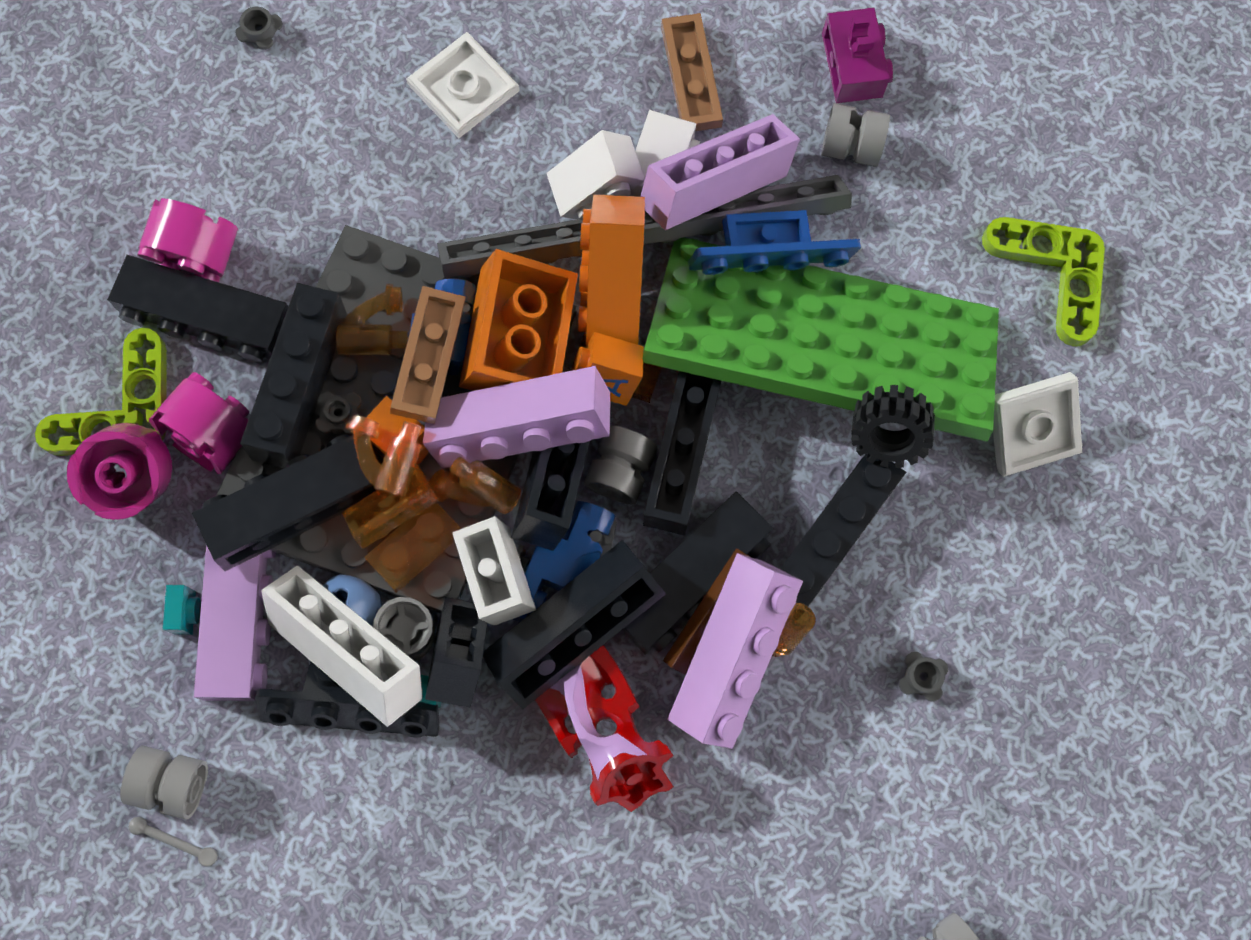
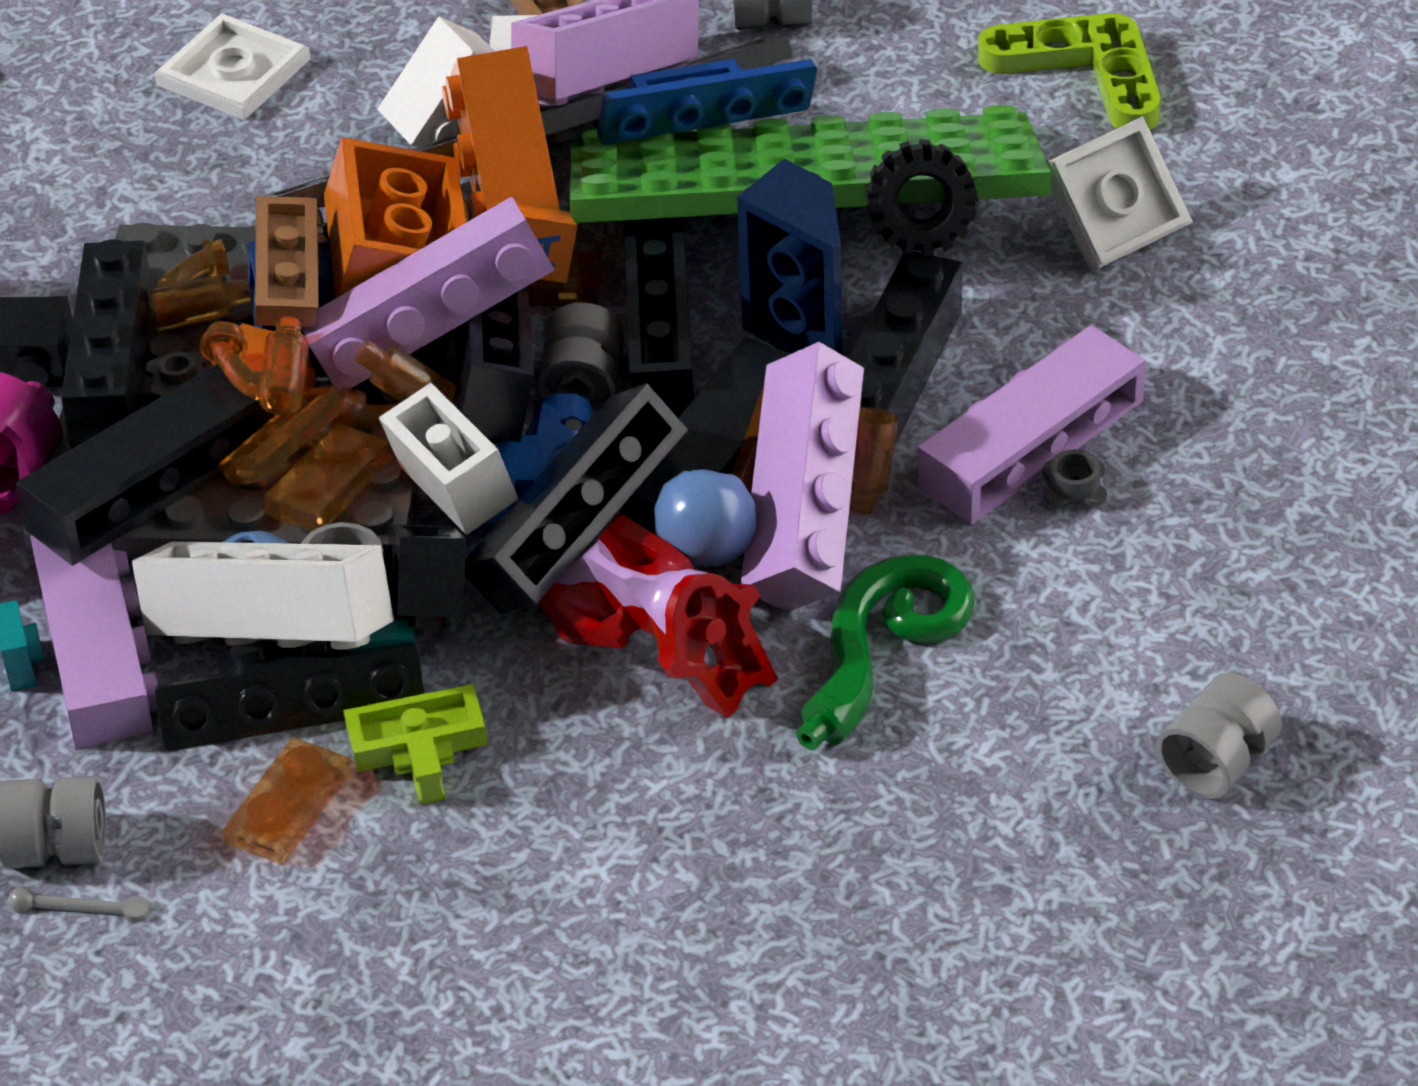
camera: 10 degrees left, 30 degrees down
(325, 797) = (287, 800): none -> clear orange plate
(421, 772) = (417, 735): none -> lime hinge
(655, 669) = (706, 516): none -> medium blue hair
(711, 829) = (847, 694): none -> green plant
(789, 450) = (790, 259): none -> dark blue slope
(910, 620) = (1028, 422): none -> lavender brick

